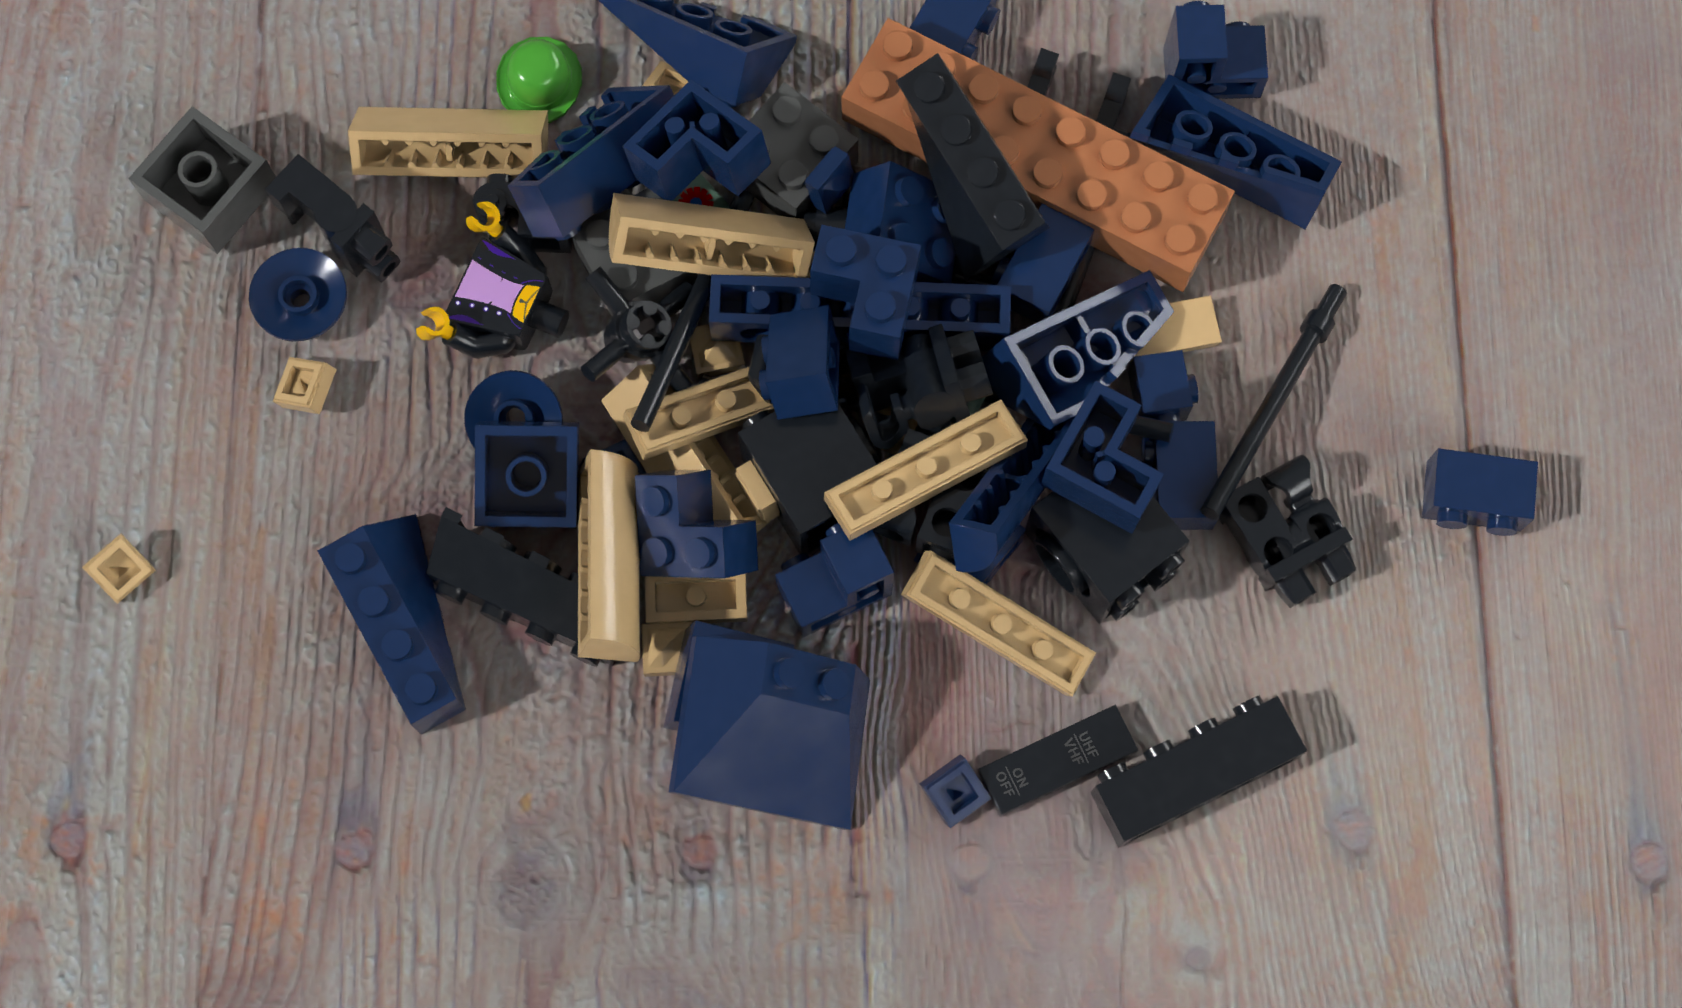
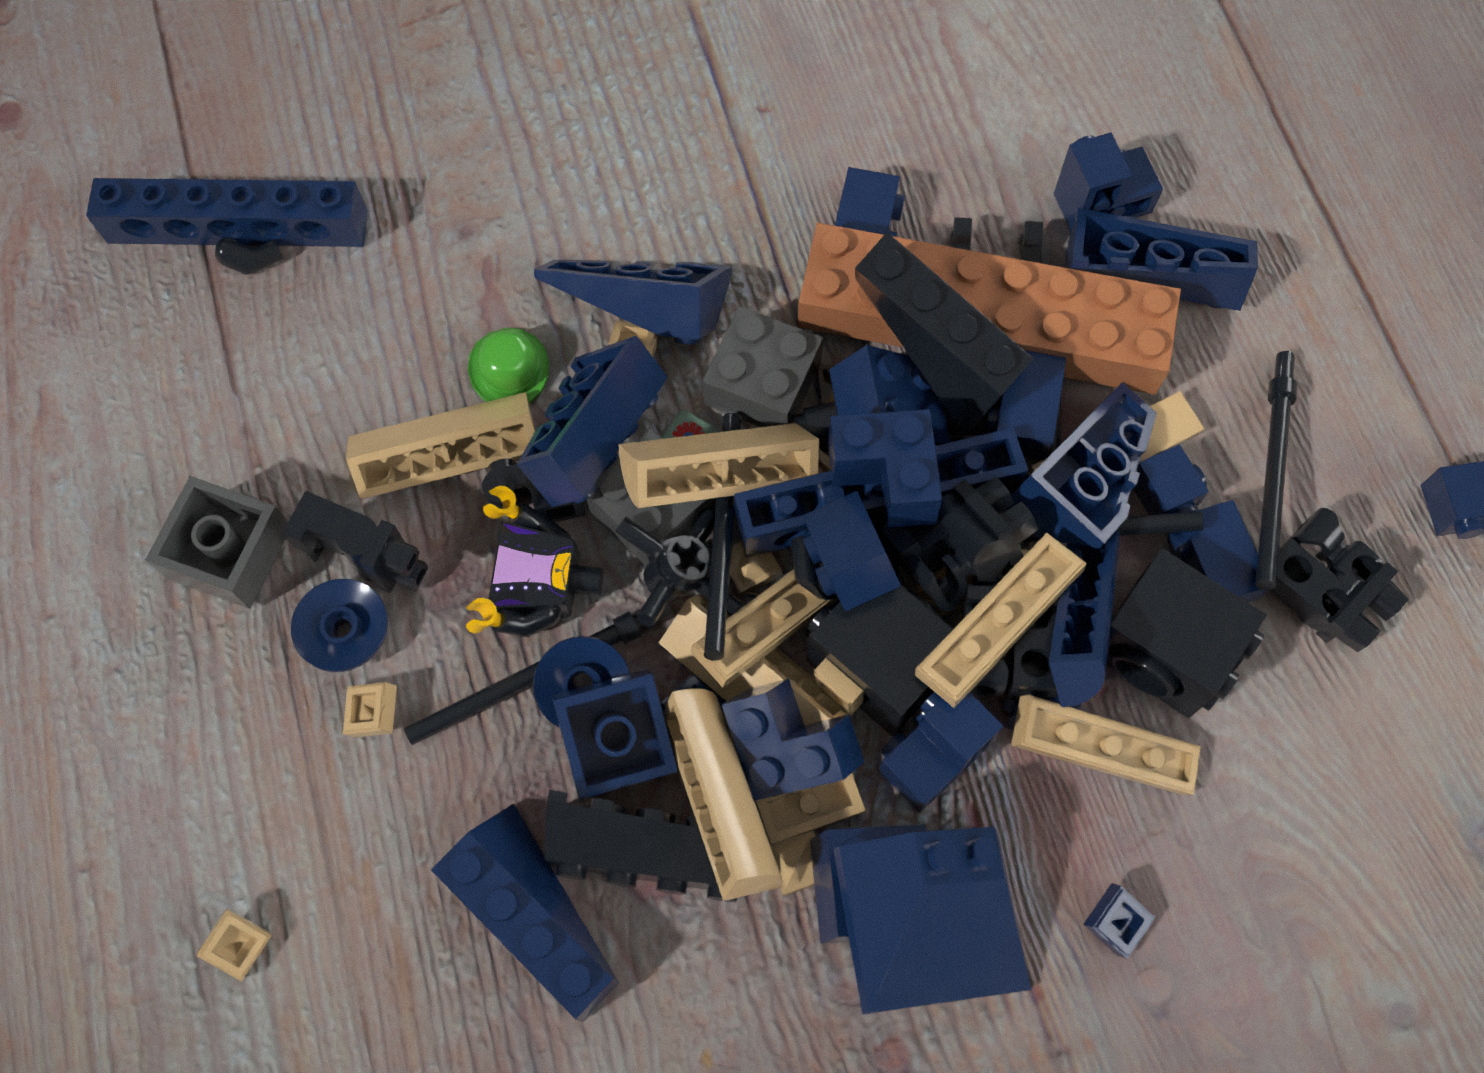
camera: 15 degrees left, 5 degrees down
(568, 378) = (625, 629): none -> black bar
(694, 136) = (682, 370): dark blue brick -> none
(830, 179) = (811, 379): dark blue tile -> none
(1057, 760) = (1202, 861): black tile -> none
(1093, 468) = (1162, 571): dark blue brick -> none
(1198, 770) = (1338, 832): black brick -> none

